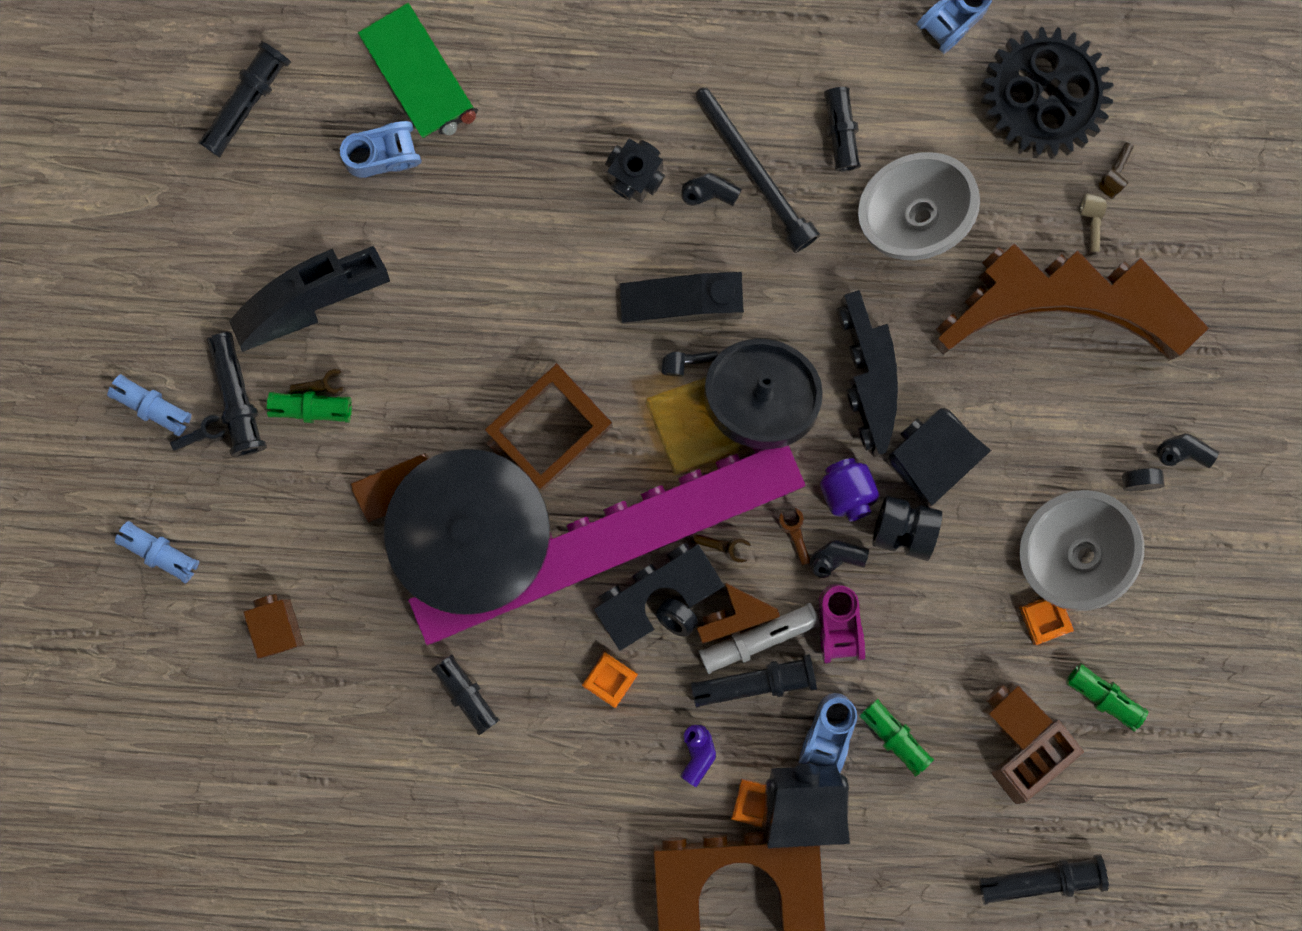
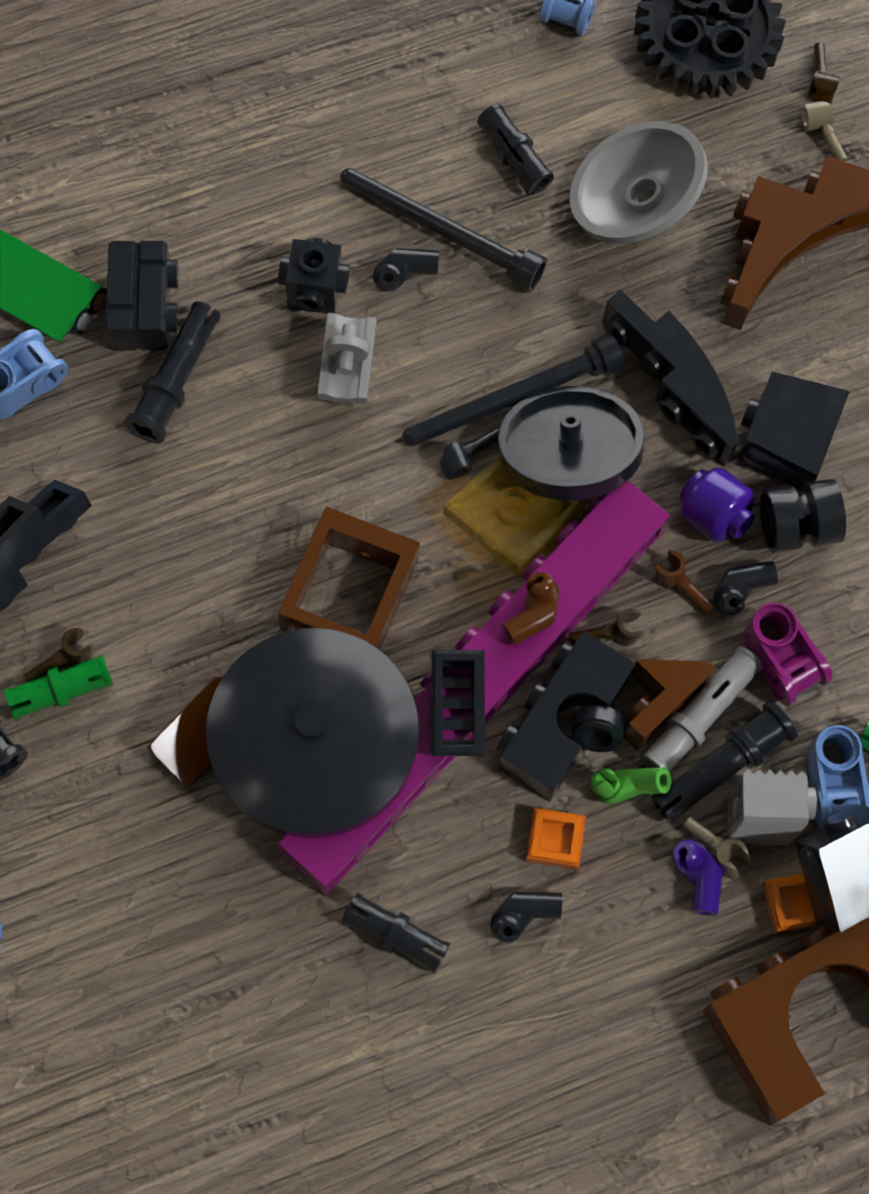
camera: 30 degrees left, 15 degrees down
(273, 626) = (128, 956): reddish brown brick -> none
(483, 212) = (165, 390): none -> black pin
(498, 126) = (139, 296): none -> black brick
(559, 719) = (520, 909): none -> black arm
(595, 526) = (457, 658): none -> black slope
(628, 250) = (347, 359): none -> light grey hips
(671, 517) = (539, 610): none -> reddish brown arm
(679, 665) = (629, 783): none -> bright green arm
(683, 298) = (434, 383): black slope -> none
(720, 738) = (722, 848): none -> dark tan hand
(765, 736) = (769, 807): none -> light grey brick
(820, 331) = (601, 357): none -> black piece

